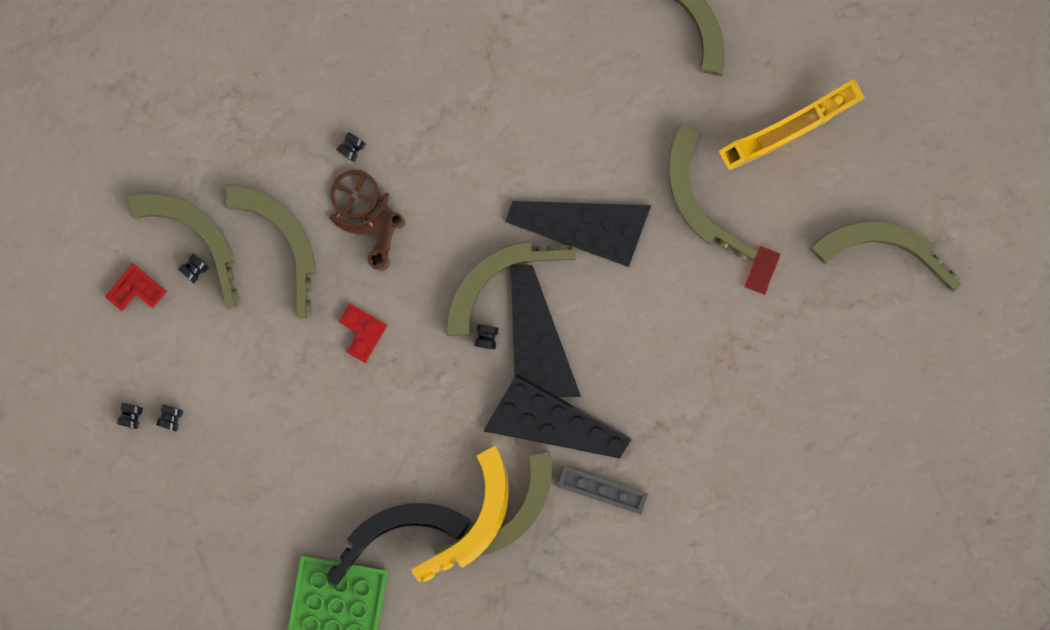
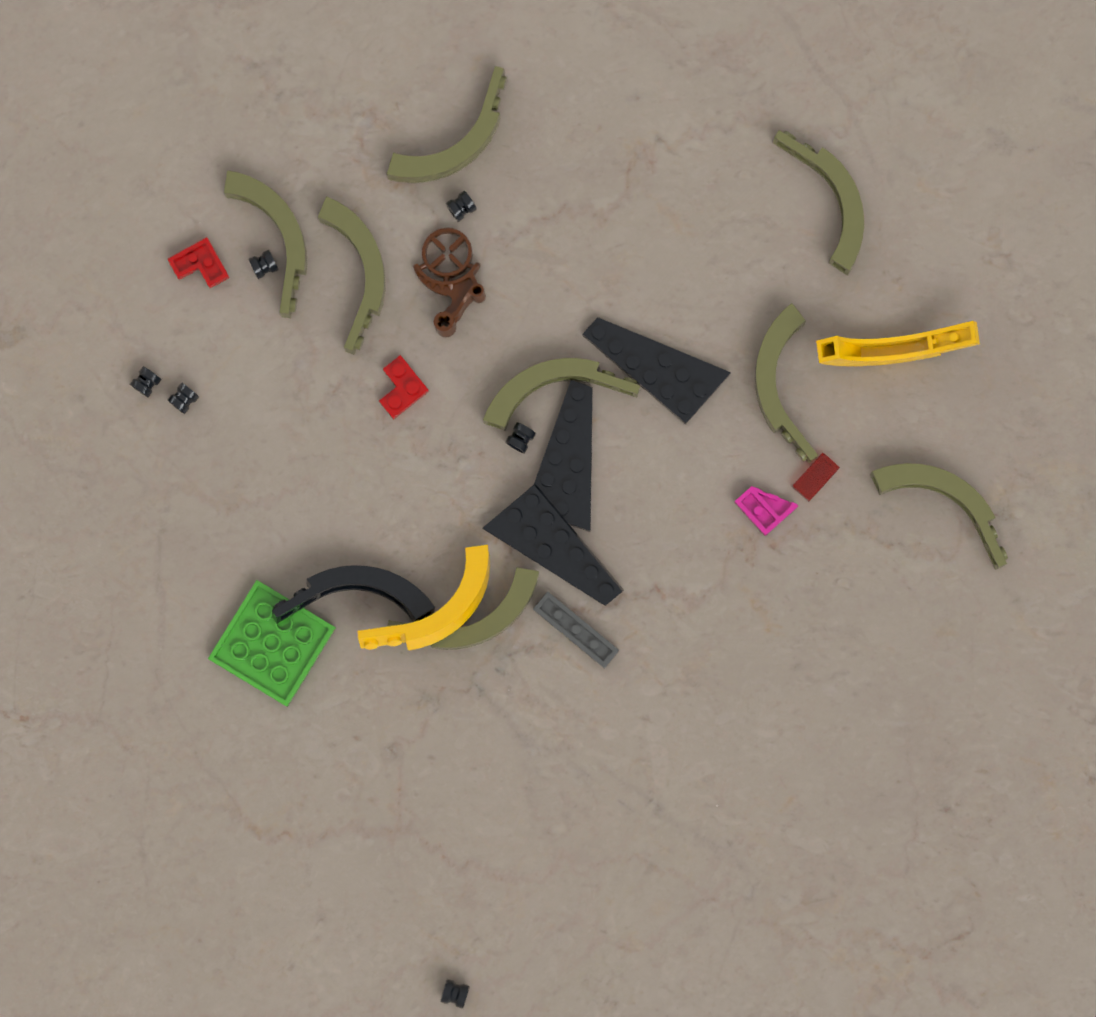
camera: 25 degrees right, 5 degrees down
(324, 110) = (442, 164): none -> olive arch
(728, 317) = (764, 509): none -> dark pink wing

